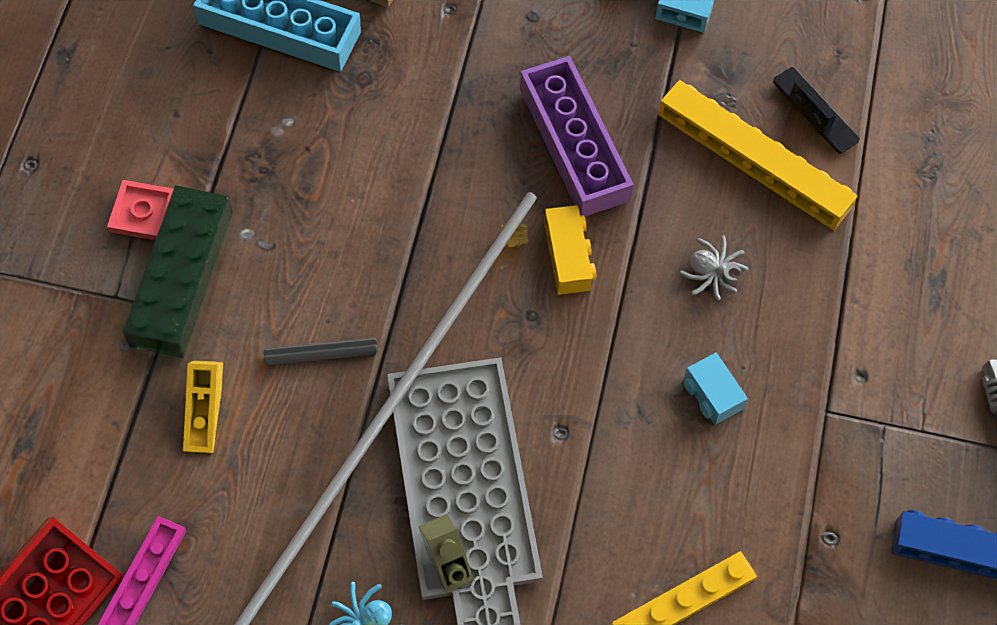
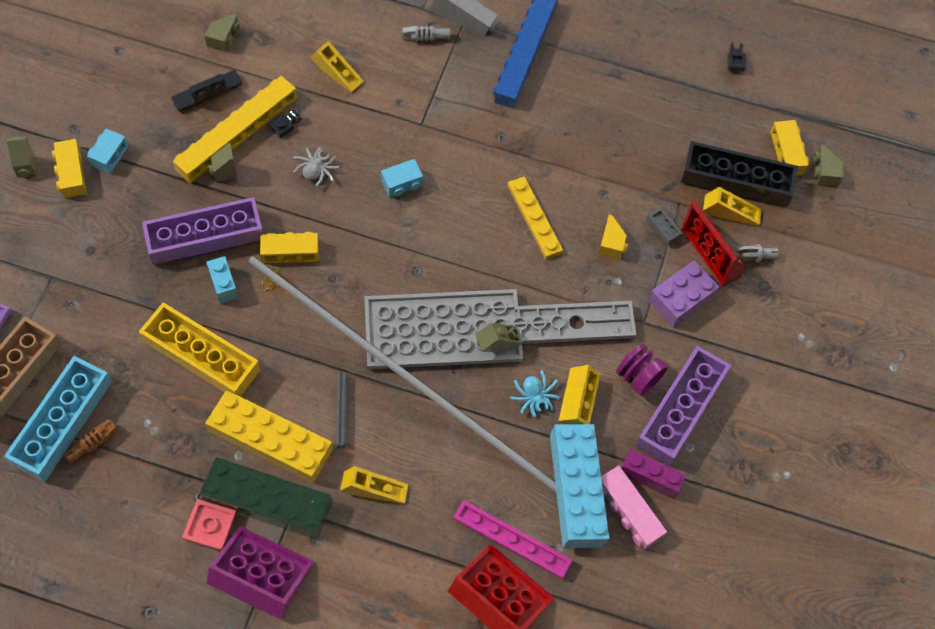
camera: 85 degrees left, 0 degrees up
(78, 278) = (259, 572): none -> magenta slope
(253, 61) = (91, 440): none -> dark orange hinge
(268, 263) = (269, 436): none -> yellow brick
(386, 160) = (199, 350): none -> yellow brick
(502, 171) = (222, 280): none -> medium azure brick
(688, 147) = (223, 165): none -> olive slope
(781, 216) = (283, 125): none -> black plate
(897, 274) = (336, 67): none -> yellow slope
(921, 112) = (221, 32): none -> olive slope

